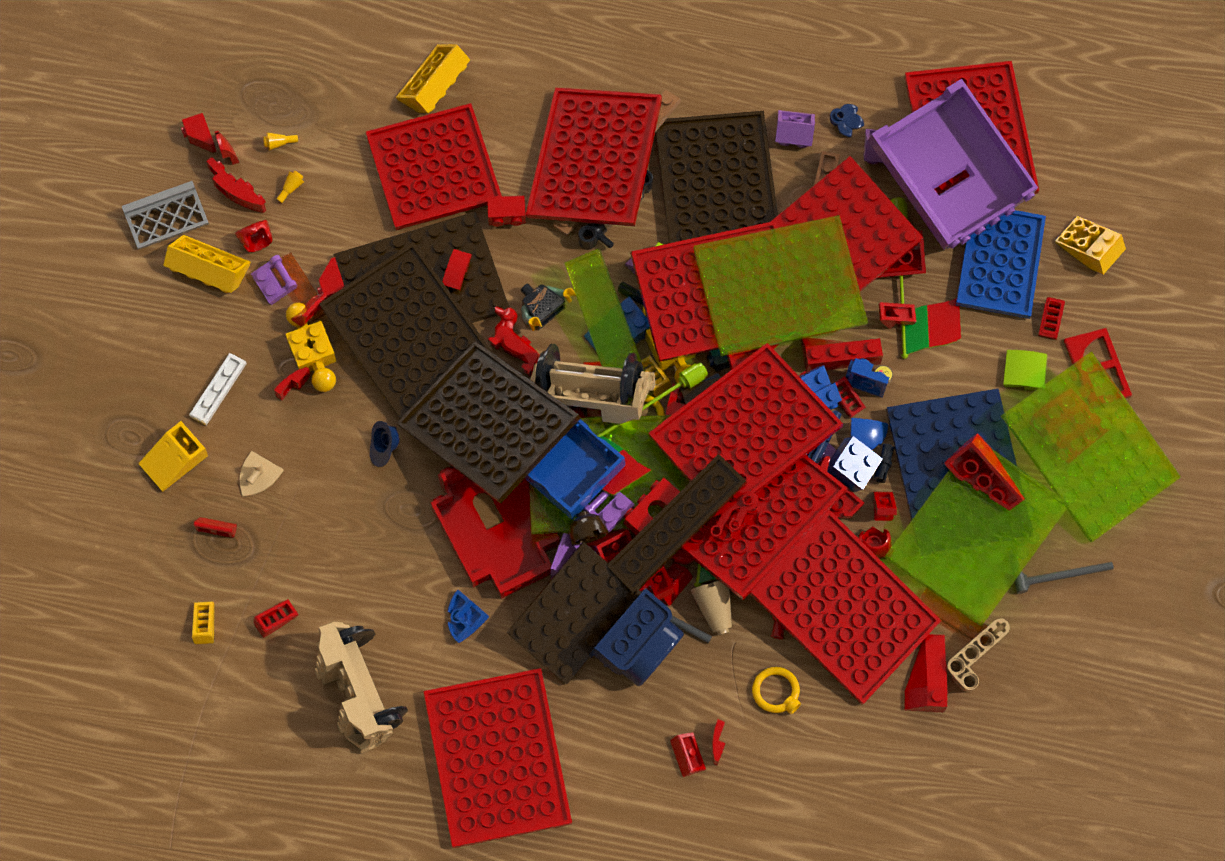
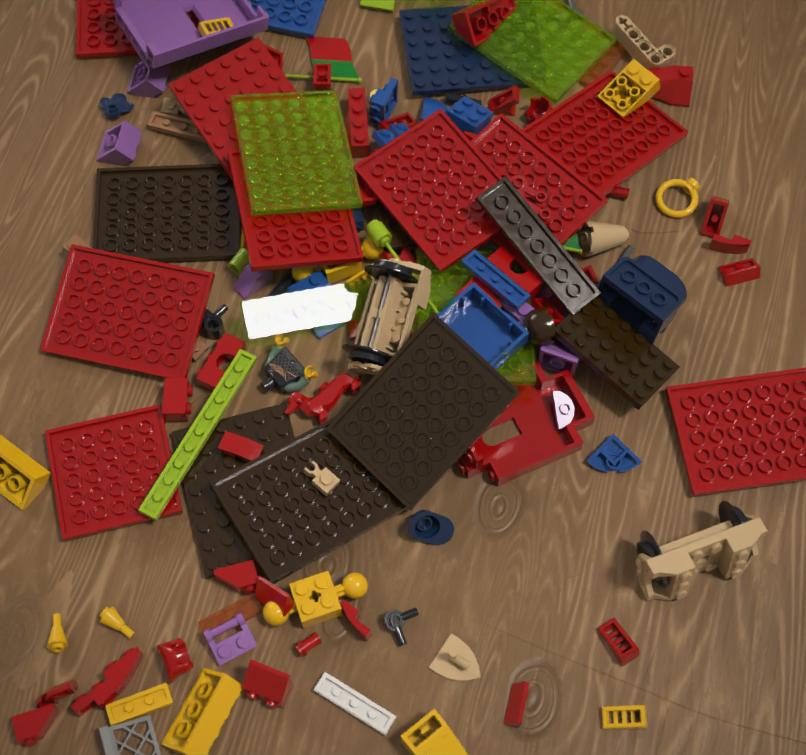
camera: 85 degrees left, 5 degrees down
(216, 213) = (139, 704): none -> yellow plate
(231, 312) = (267, 684): none -> red slope
(268, 342) = (307, 644): none -> red pin
(291, 417) = (395, 620): none -> black piece
(423, 343) = (323, 480): none -> tan plate
(470, 232) = (197, 435): none -> lime plate
(510, 565) = (563, 408): none -> plate
(535, 239) = (224, 351): none -> red arch
(638, 485) = (495, 279): none -> blue plate
(754, 728) = (714, 216): none -> red slope
(907, 635) = (630, 89): none -> yellow slope
(941, 190) = (211, 24): none -> yellow slope

